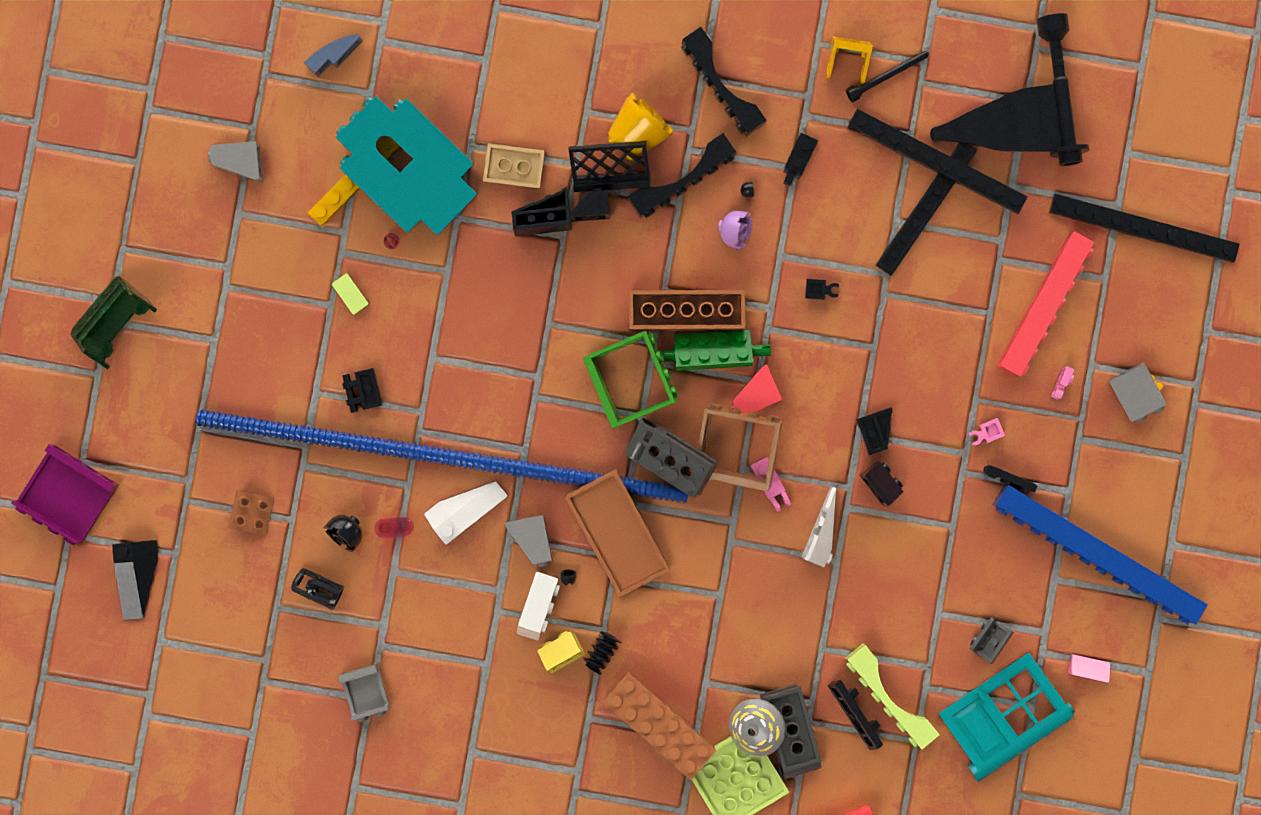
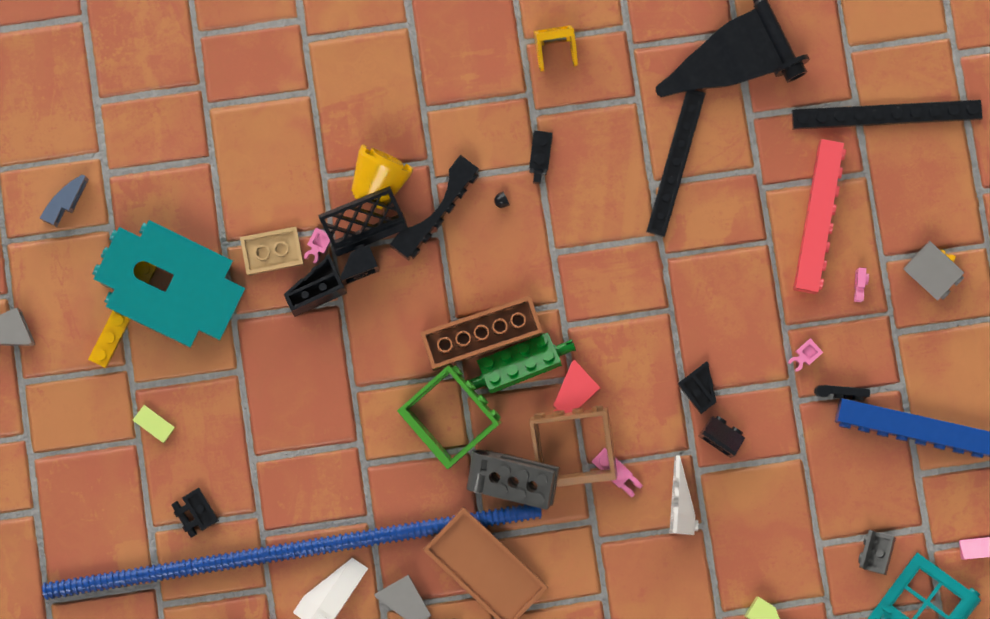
camera: 20 degrees left, 5 degrees down
(394, 238) = (179, 357): clear pink hinge -> none
(561, 173) = (319, 242): none -> bright pink plate
(735, 228) = (501, 241): lavender cylinder -> none
(745, 114) = (474, 129): black arch -> none
(817, 289) = (599, 273): black plate -> none
(855, 92) = (572, 76): black piece -> none
(937, 161) = (671, 115): black plate -> none

